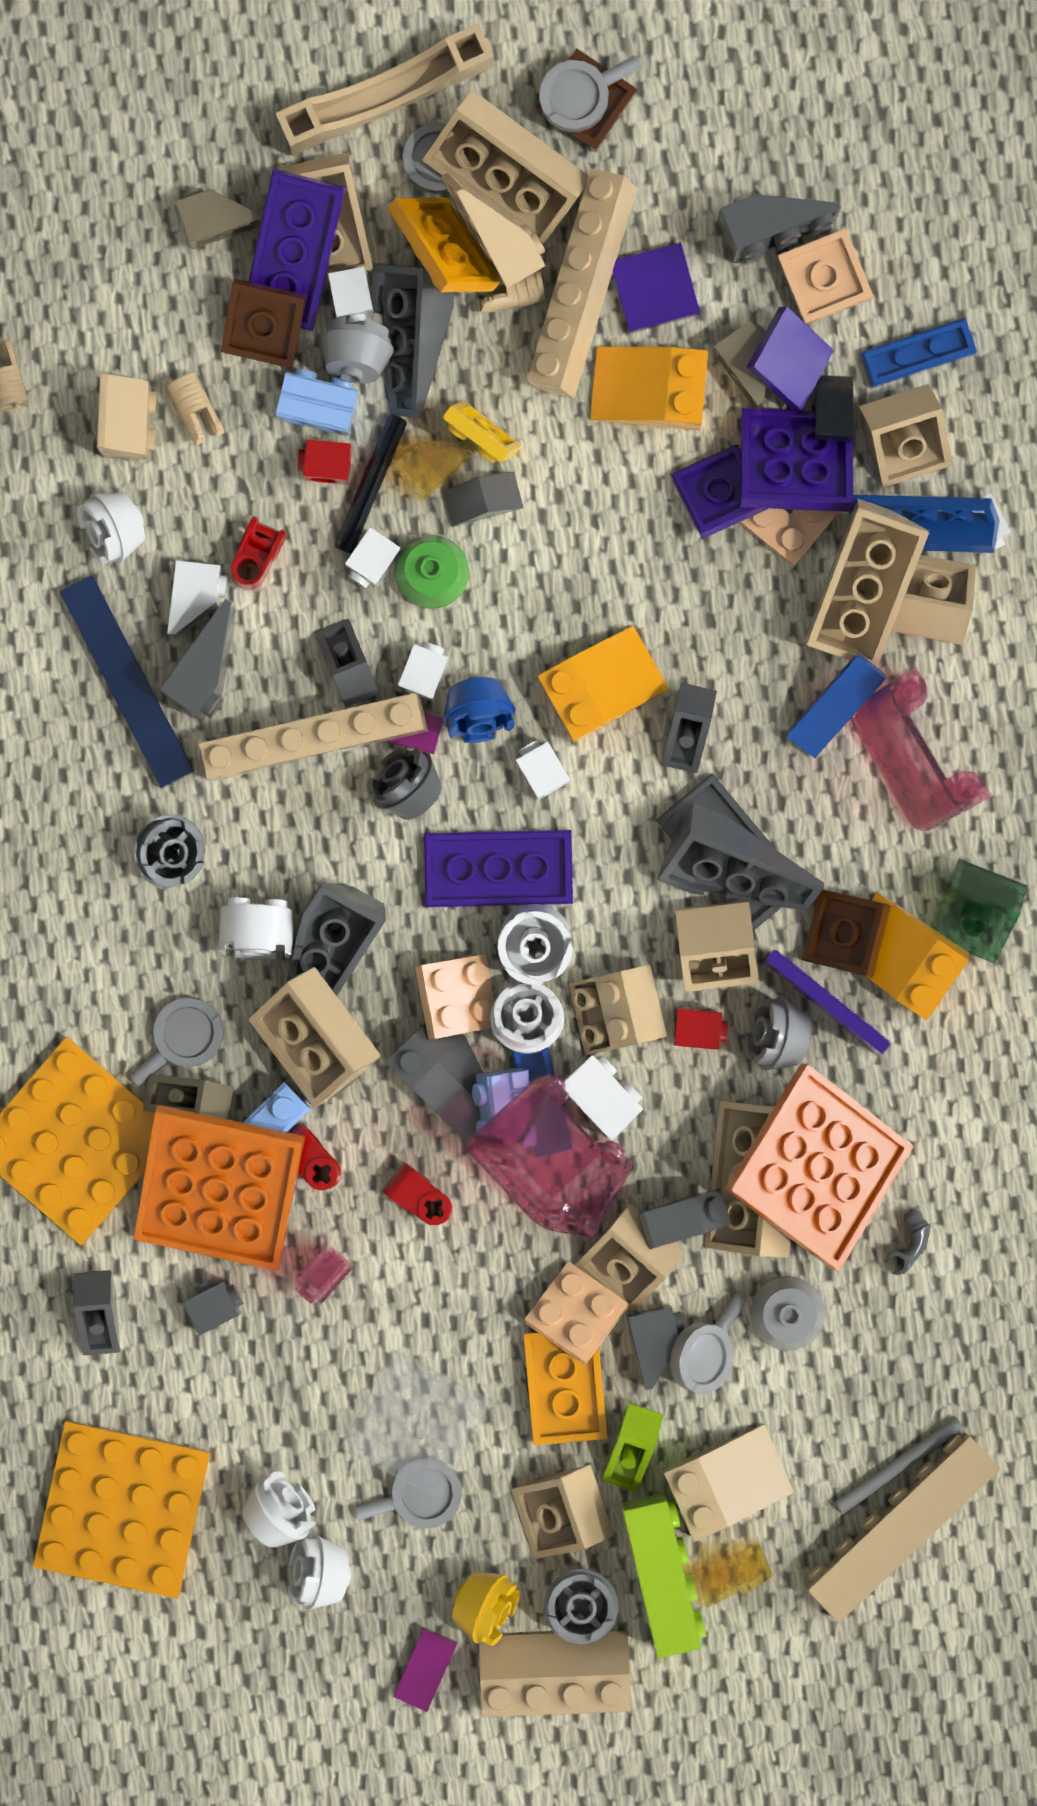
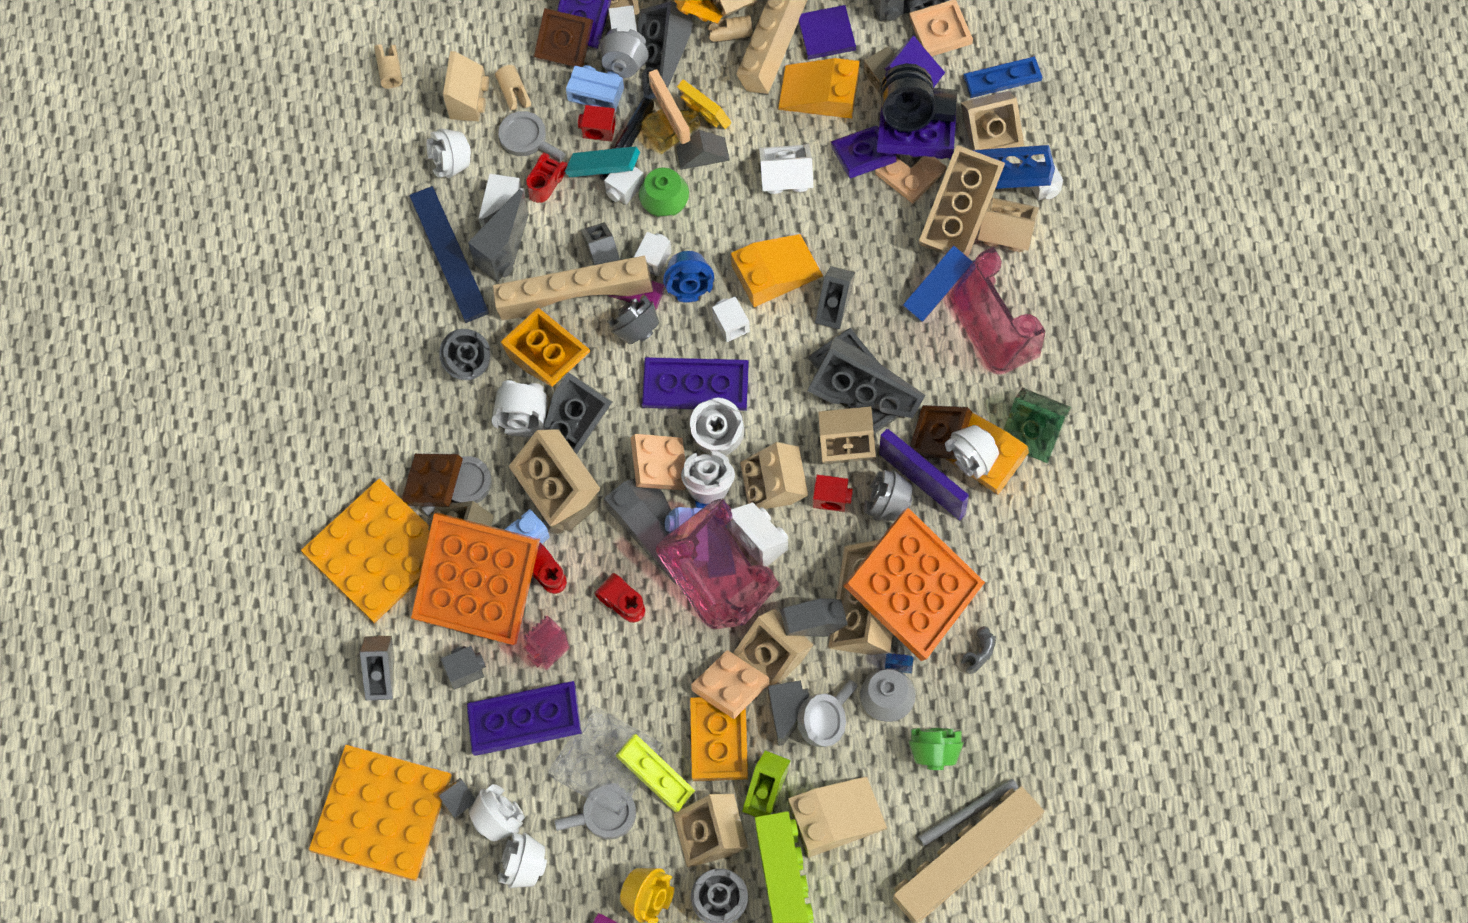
camera: 10 degrees right, 20 degrees down
(141, 1038) = (432, 480): none -> reddish brown plate
(219, 481) = (525, 134): none -> light grey piece
(222, 1486) = (457, 797): none -> dark grey tile
(284, 841) = (543, 348): none -> light orange slope
(302, 1374) = (523, 718): none -> dark purple tile
(340, 532) = (602, 161): none -> teal tile
(432, 445) = (669, 106): none -> light nougat tile
(484, 1443) = (655, 773): none -> neon yellow tile
(607, 521) = (786, 168): none -> white slope
(733, 1574) = (837, 886): clear yellow slope -> none
(783, 419) = (907, 97): none -> black wheel
(801, 1269) = (899, 662): none -> clear blue tile
(855, 1386) = (936, 747): none -> bright green cone
(896, 977) = (973, 450): none -> white cone

